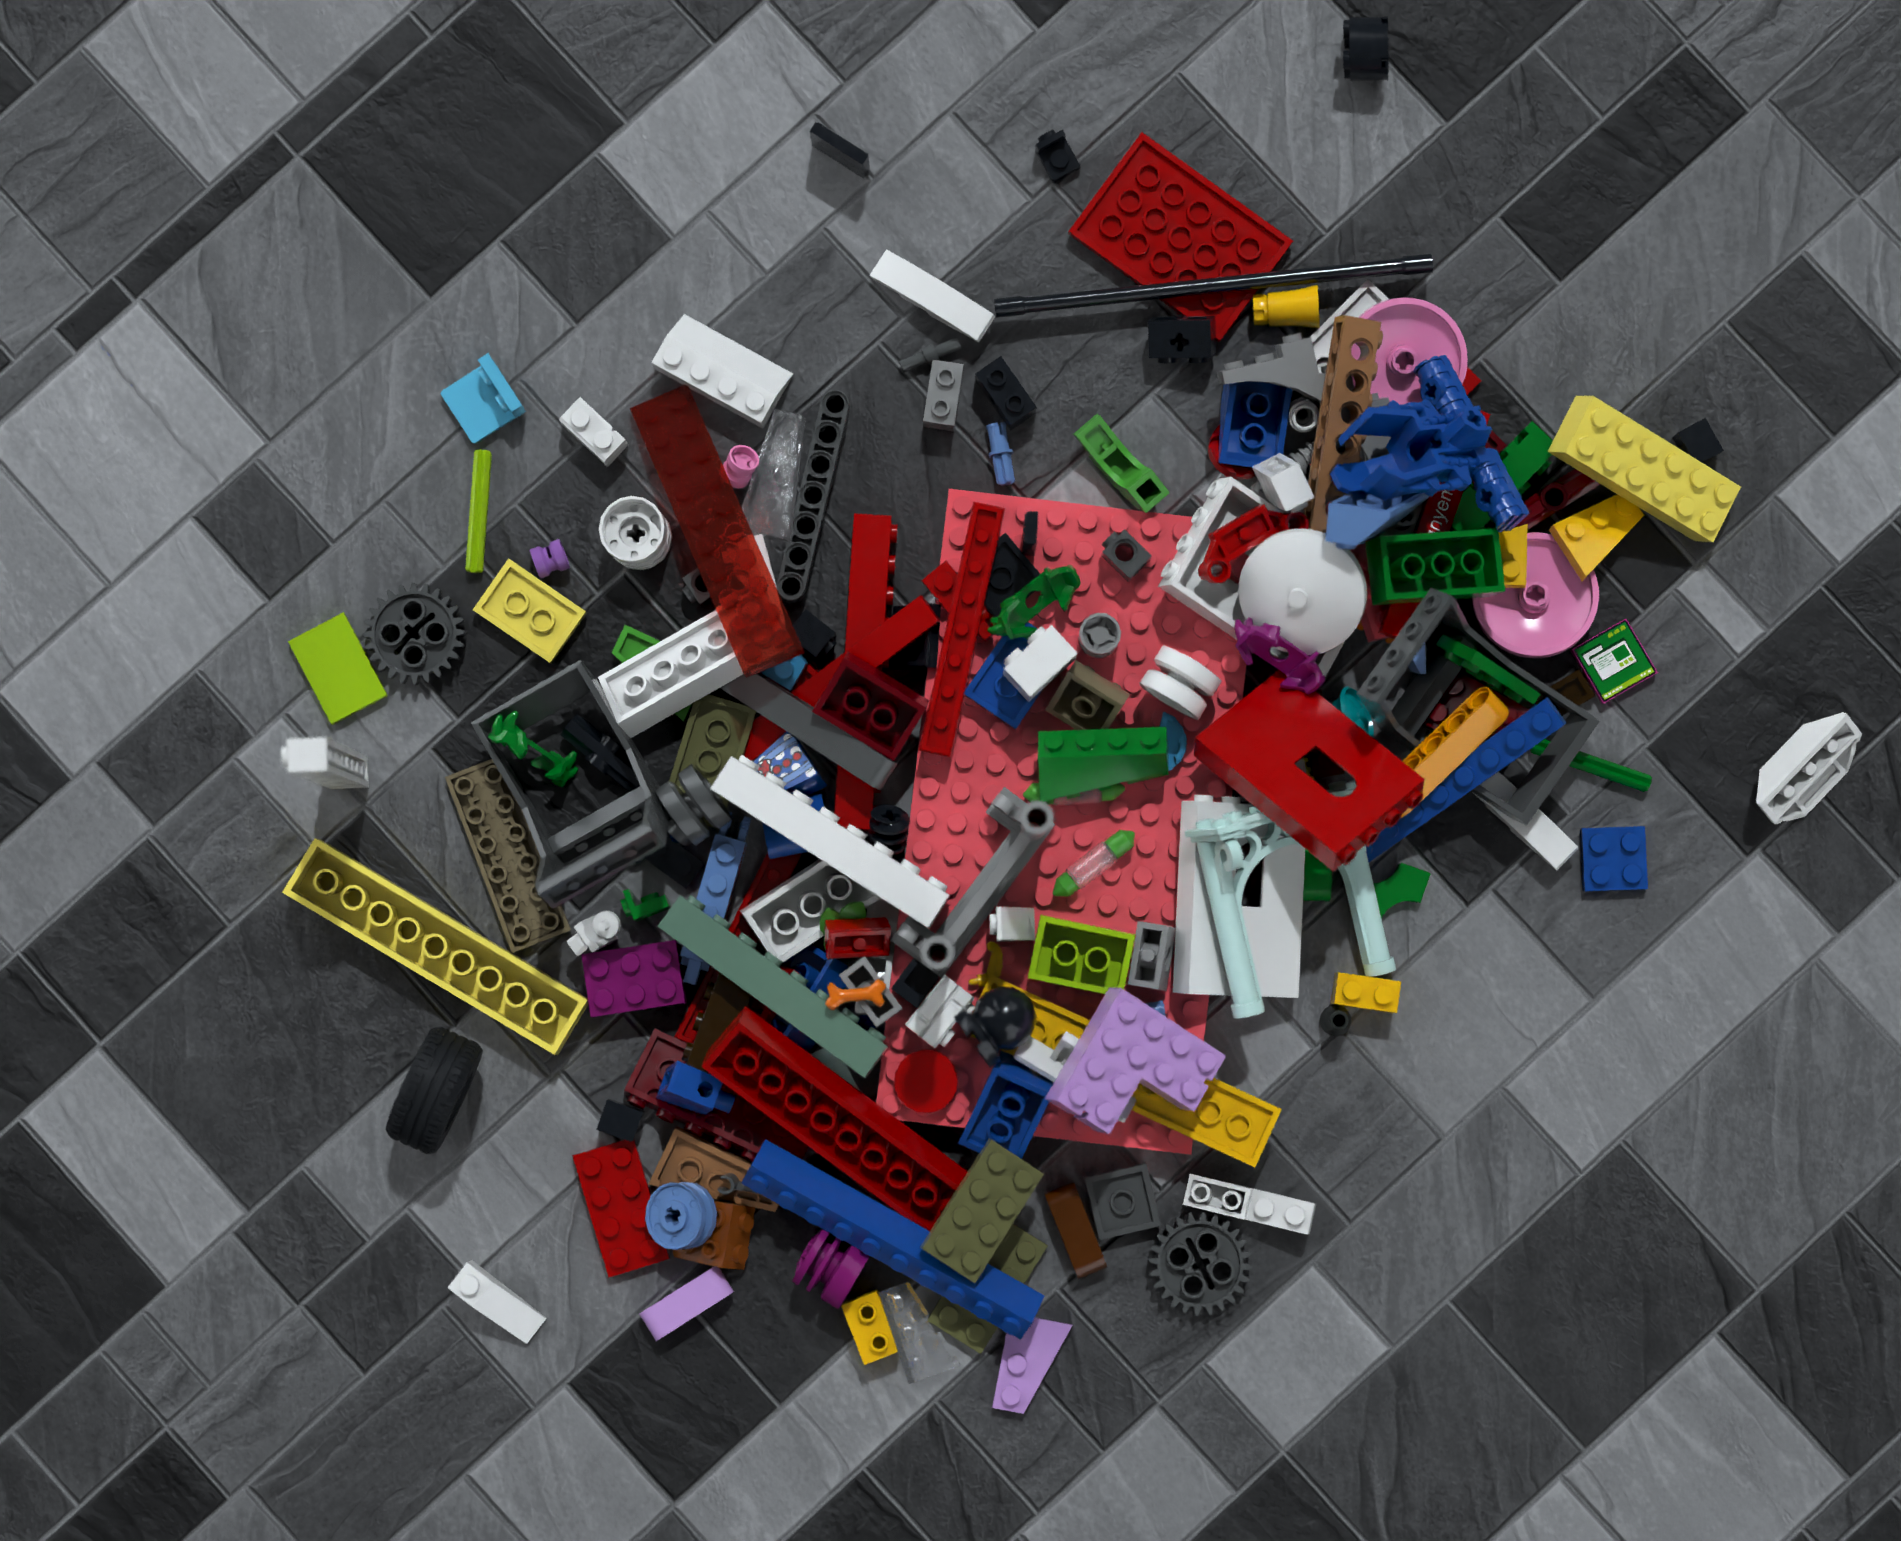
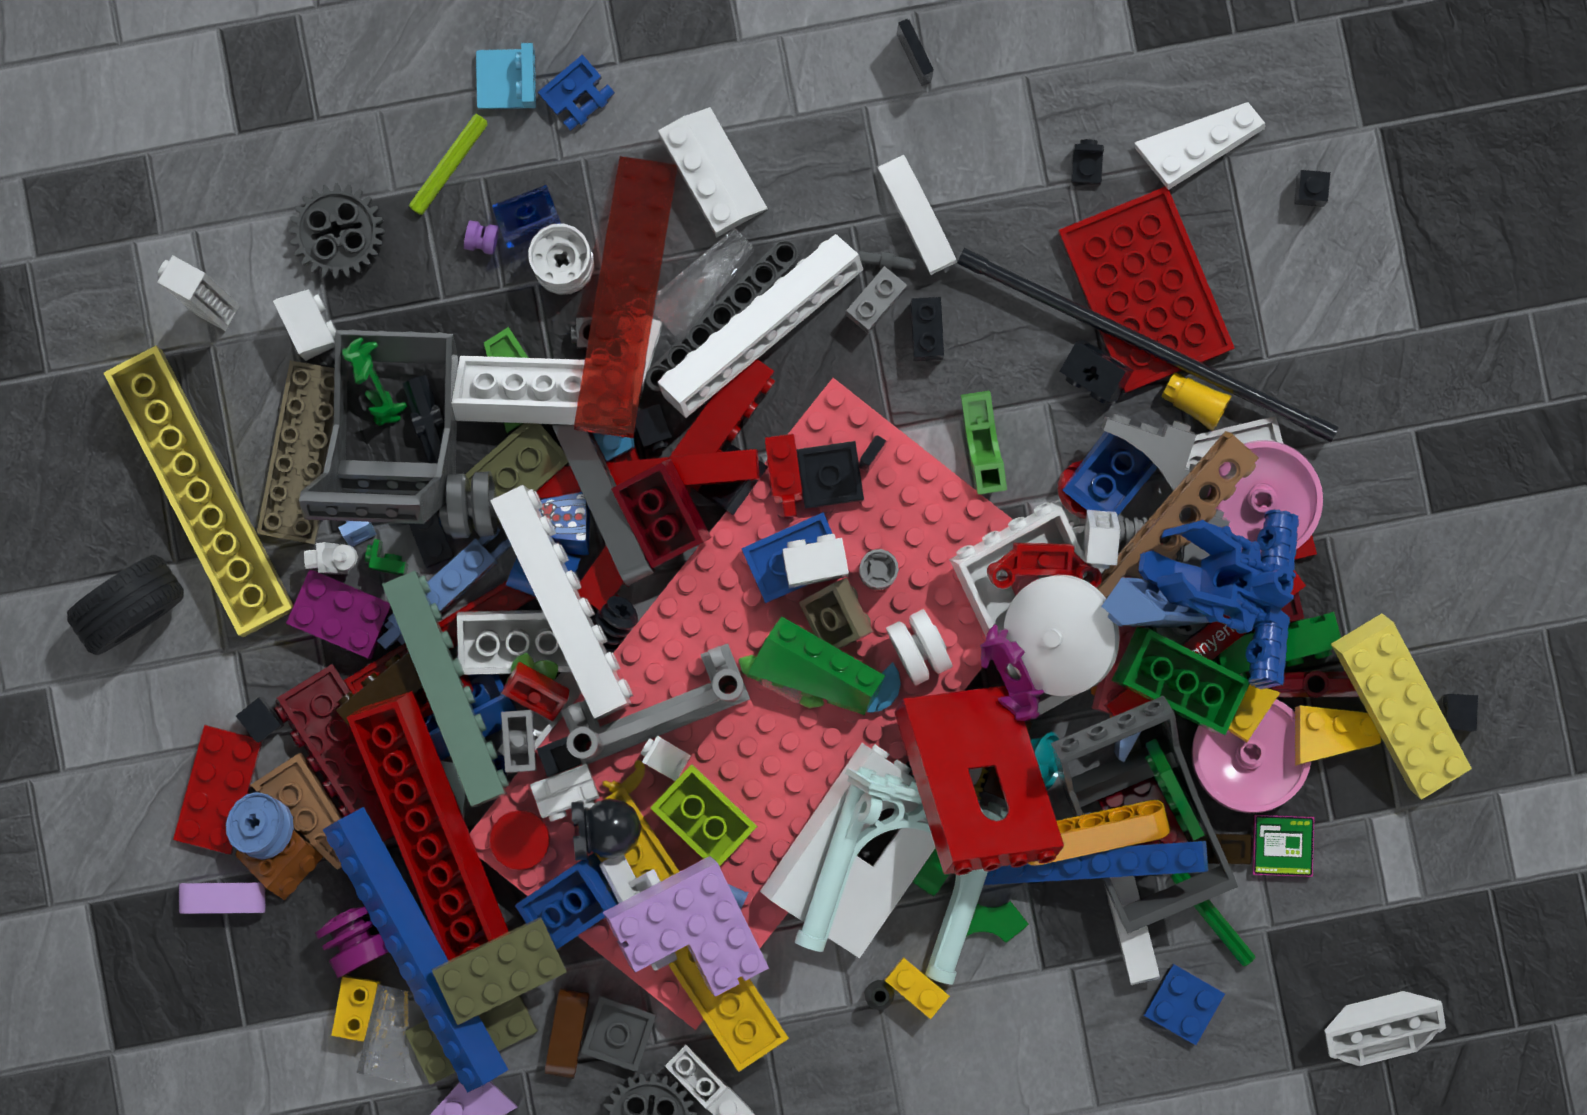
camera: 30 degrees right, 0 degrees up
(338, 668) = (259, 221): lime tile -> none
(439, 734) = (306, 323): none -> white slope
(496, 1301) = (72, 803): white slope -> none
(529, 611) = (439, 269): light yellow plate -> none
(545, 371) = (572, 84): none -> blue plate
(578, 514) = (525, 215): none -> clear blue slope
(593, 432) = (578, 157): white brick -> none
(602, 894) = (357, 532): none -> light blue tile
(681, 1088) = (322, 723): blue torso -> none
(735, 1184) = (318, 828): dark grey hand -> none
(740, 465) = (678, 256): bright pink wheel -> none
(840, 996) = (490, 729): orange piece -> none
(853, 482) = (760, 325): none -> white brick
(962, 629) = (771, 497): red tile -> none
(1000, 453) = (893, 374): medium blue axle -> none
(1052, 584) = (821, 510): green piece -> none
(1094, 863) = (761, 749): piece -> none
(1128, 568) = (935, 530): dark grey brick -> none
(1144, 79) = (1190, 147): none -> white wing
(1152, 956) = (760, 852): light grey brick -> none
(1273, 54) = (1312, 188): none -> black brick
(1311, 419) = (1154, 502): white brick -> none
(1367, 48) = (1390, 230): black brick -> none

